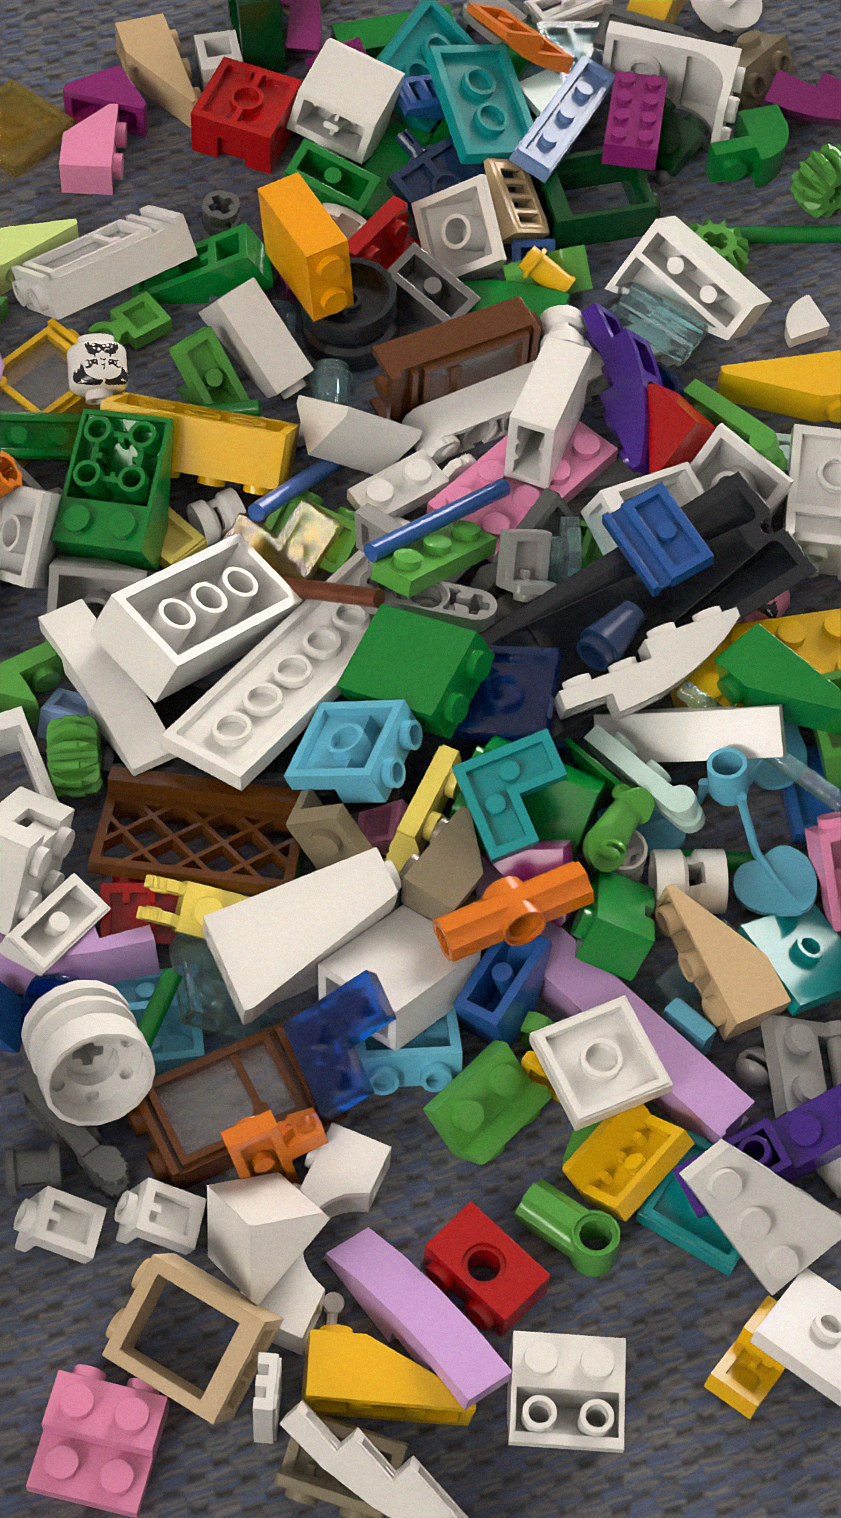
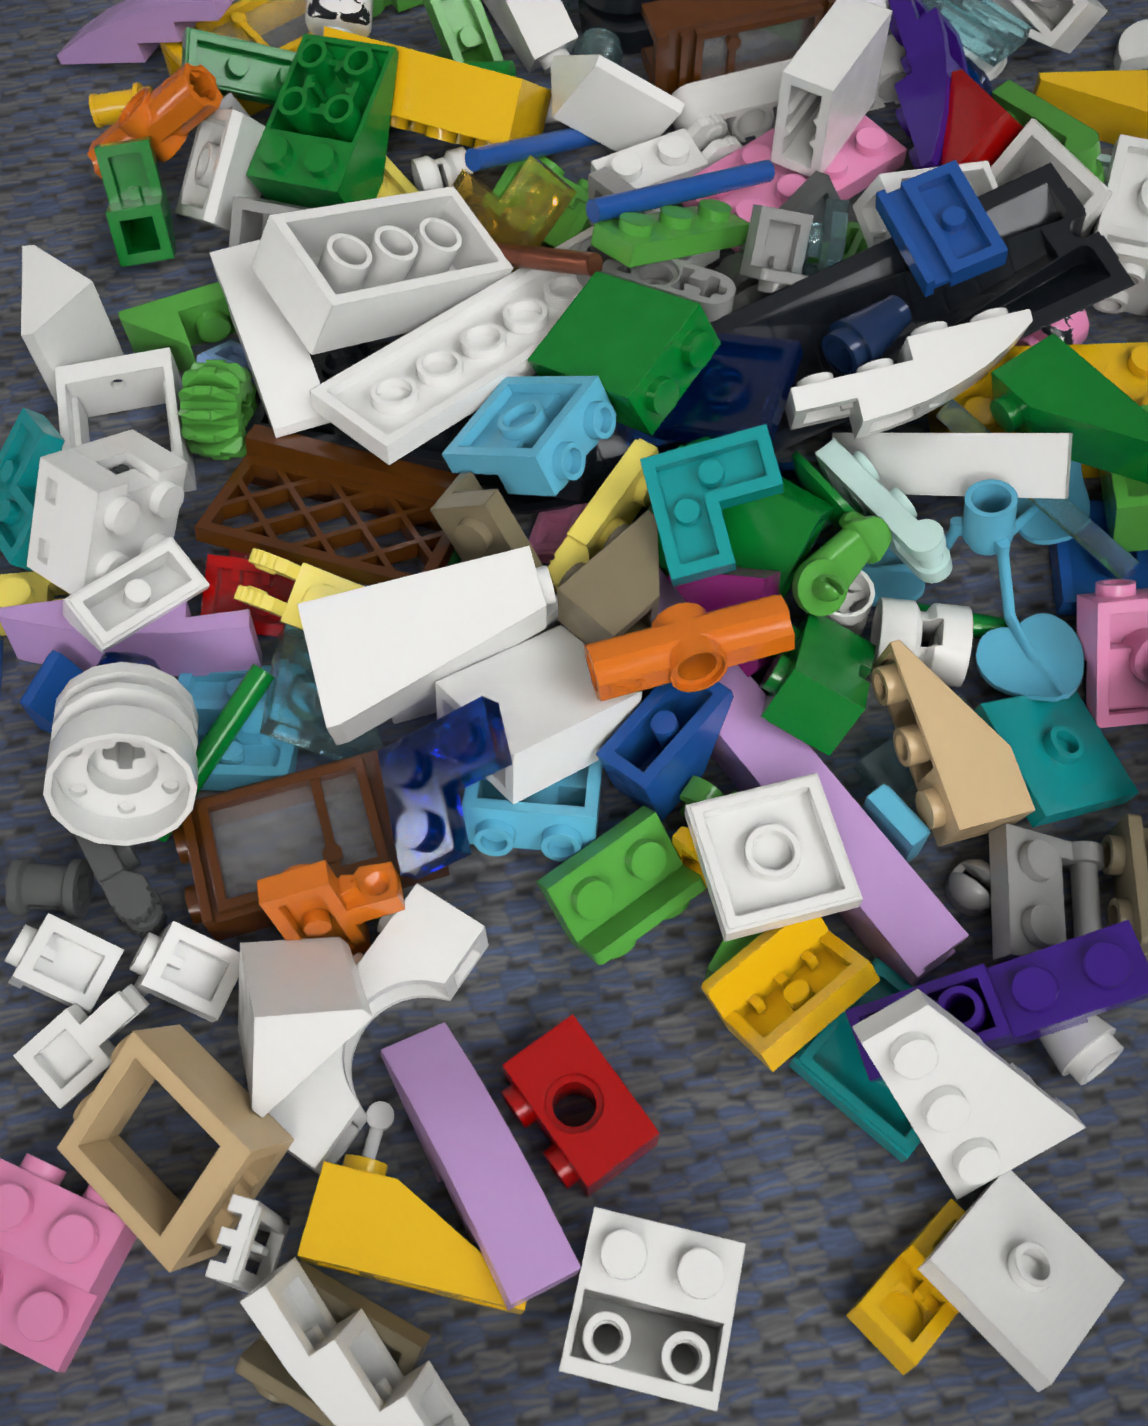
camera: 15 degrees right, 5 degrees up
(89, 1287) = (77, 1047): none -> white plate
(566, 1224) = (695, 1060): bright green piece -> none

